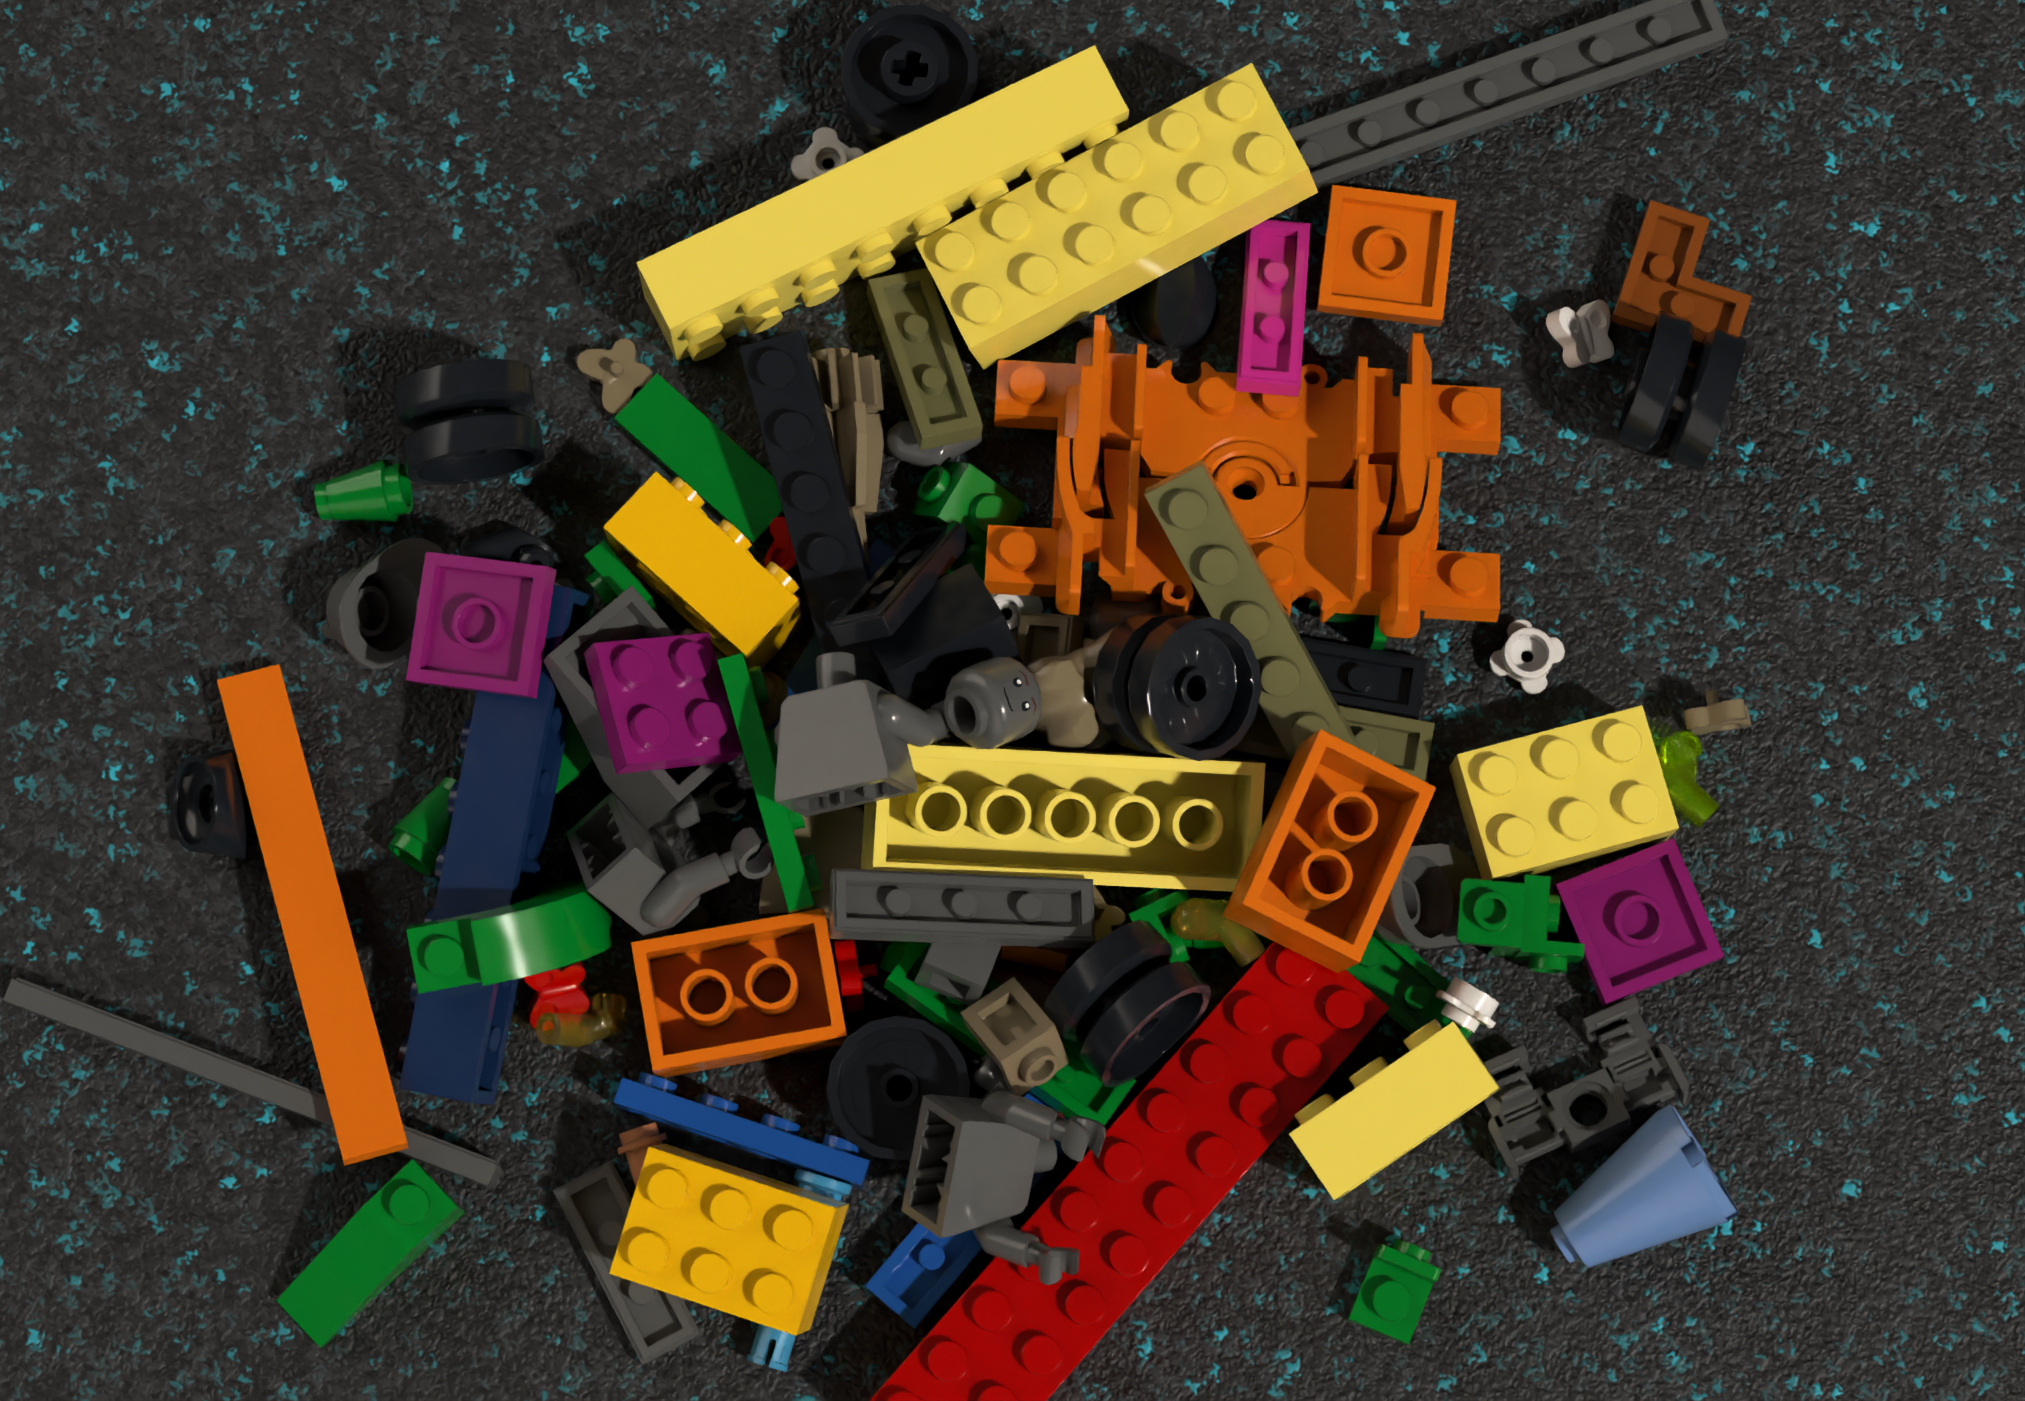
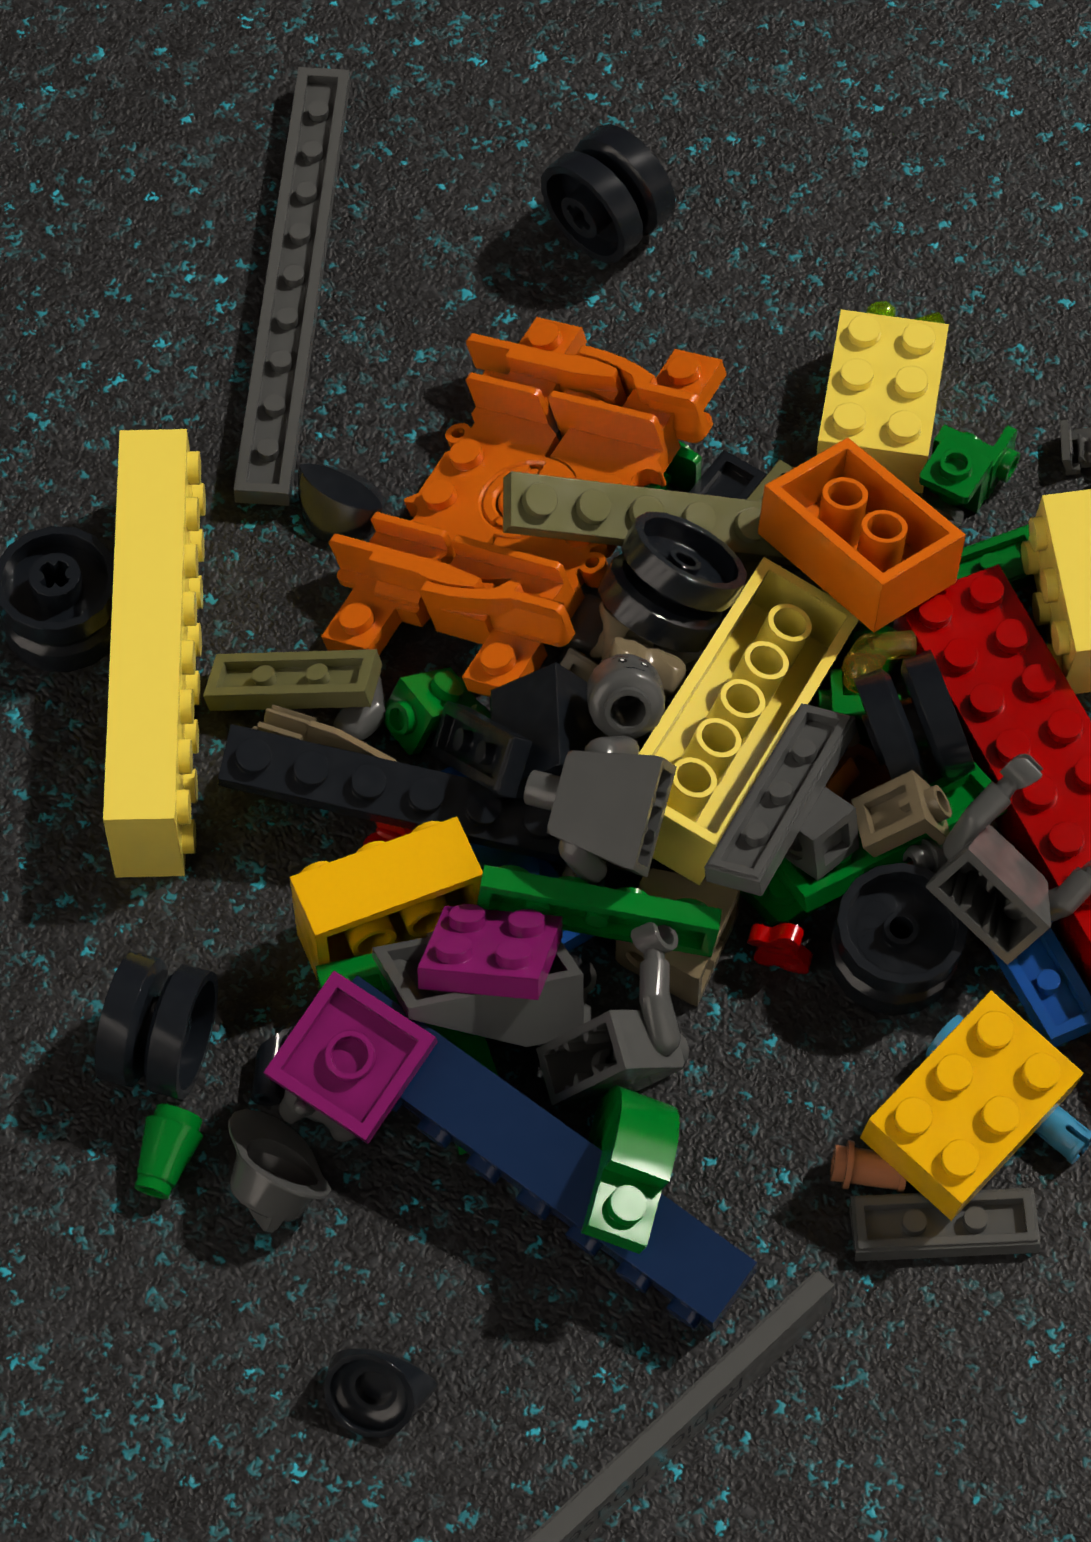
camera: 60 degrees left, 20 degrees down
(312, 915) = (522, 1335): orange tile -> none
(370, 1252) = (843, 1419): green slope -> none
(424, 830) = (491, 1219): green cone -> none
(557, 992) = (689, 1183): red piece -> none
(581, 1030) = (726, 1154): clear yellow arm -> none
(617, 373) = (171, 919): dark tan piece -> none
(702, 457) = (263, 887): green tile -> none
(717, 1120) = (860, 1095): blue plate -> none
(739, 993) = (758, 1026): orange brick -> none
(824, 147) = (88, 705): white plate -> none
(1117, 216) = (259, 490): light yellow brick -> none
(1273, 308) = (388, 433): dark pink tile -> none
(1386, 255) = (389, 348): orange plate -> none
(1467, 1005) = (1013, 519): white plate -> none
(1524, 638) = (755, 375): white plate -> none
(1582, 333) = (523, 251): white piece -> none
(1638, 921) = (1002, 389): magenta plate -> none
(1662, 278) = (502, 183): dark orange plate -> none
(1717, 715) = (868, 283): dark tan piece -> none

